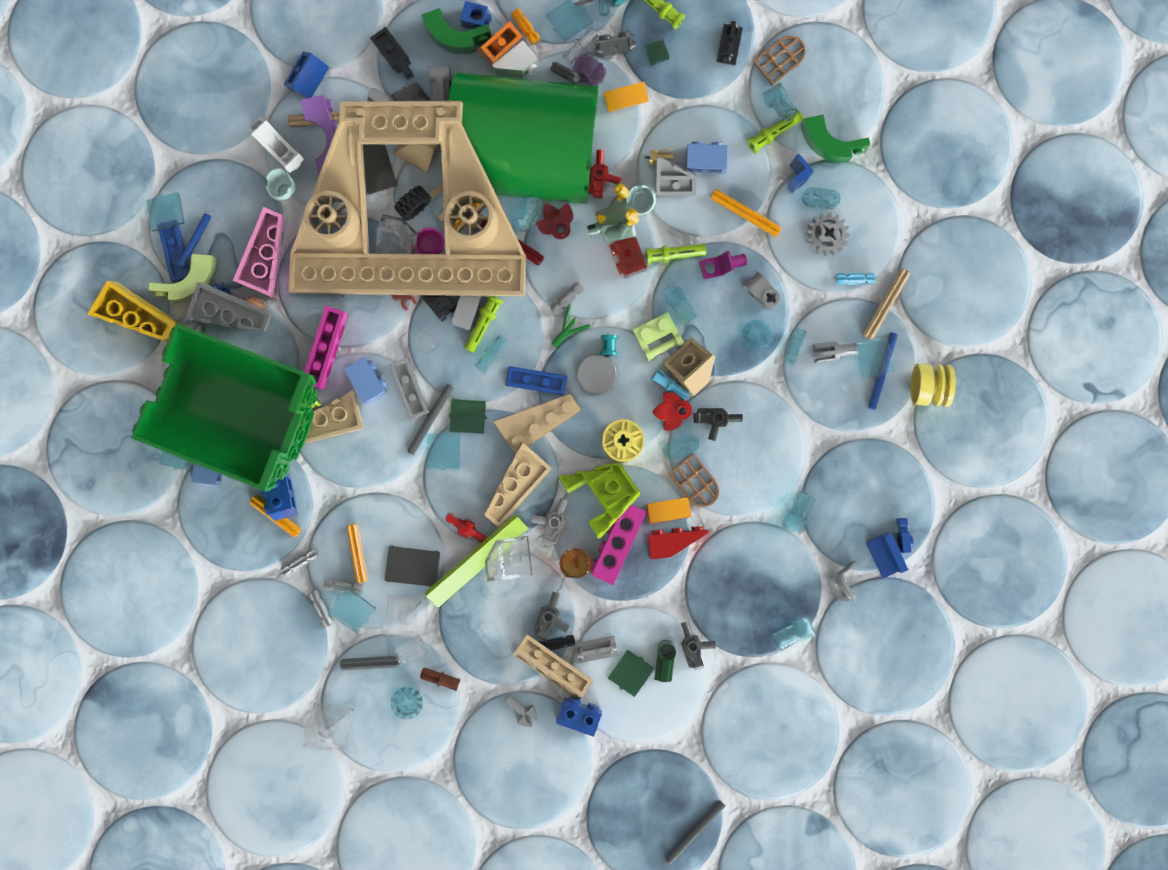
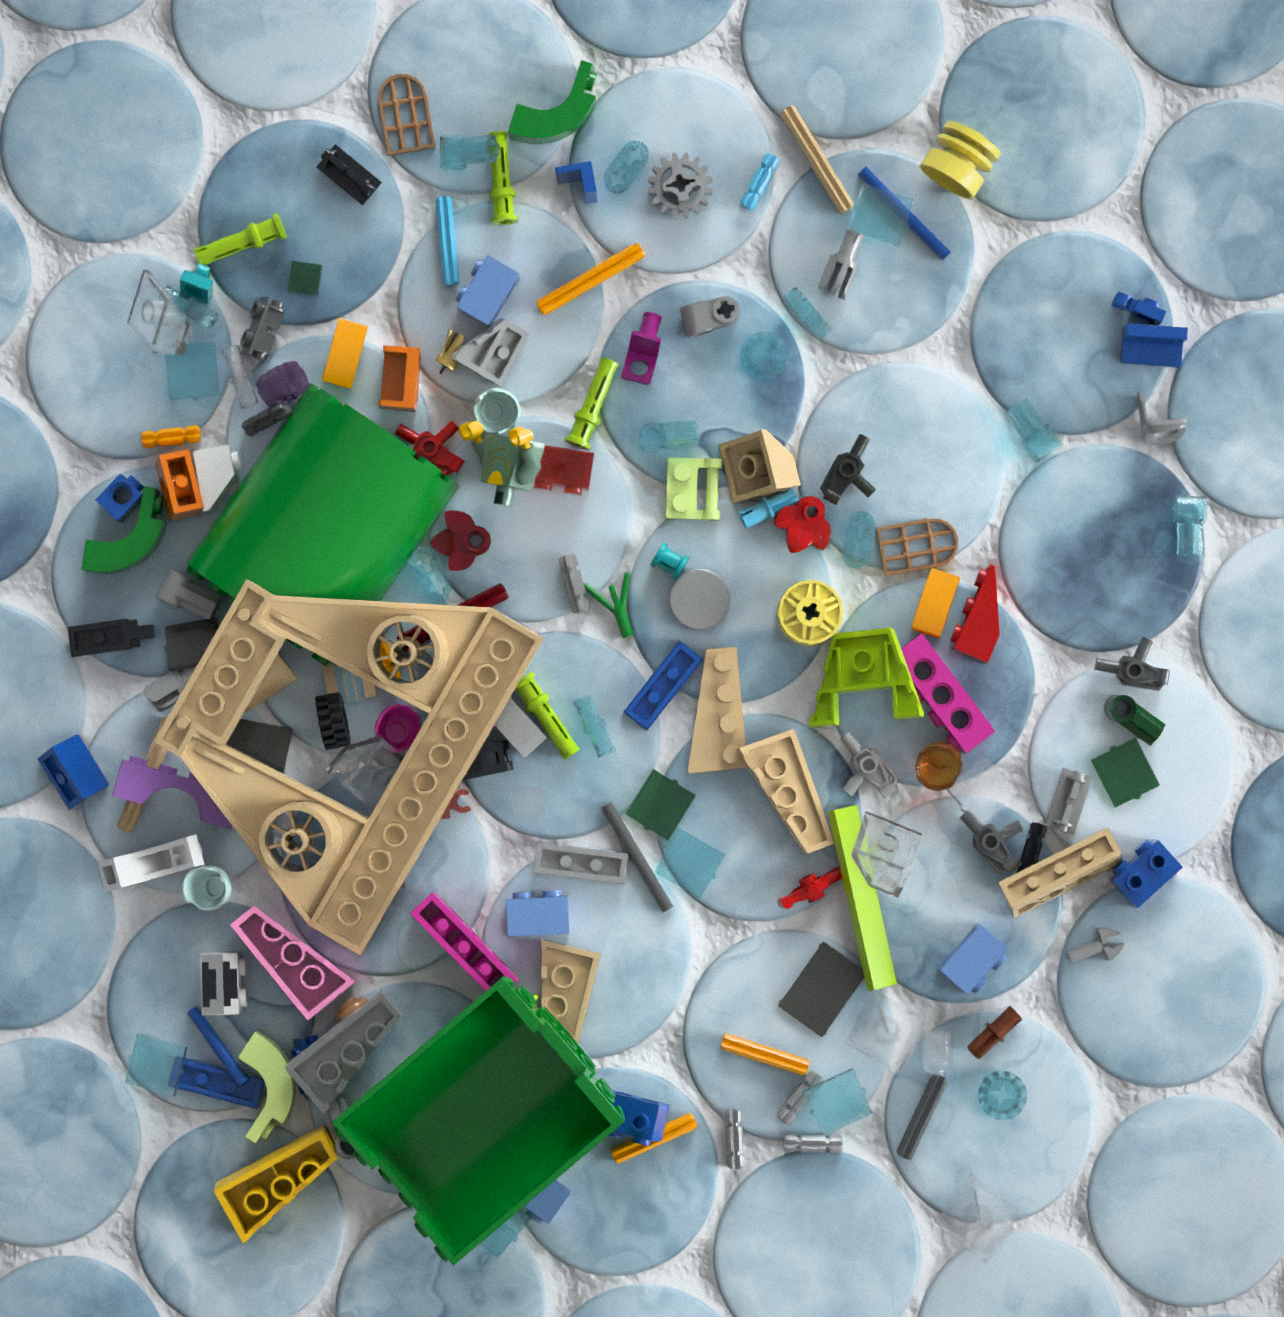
camera: 65 degrees left, 0 degrees up
(231, 223) = (223, 983): none -> brick
(475, 643) = (973, 959): none -> medium blue brick
(629, 137) = (400, 378): none -> orange panel
(722, 120) = (447, 241): none -> medium azure axle

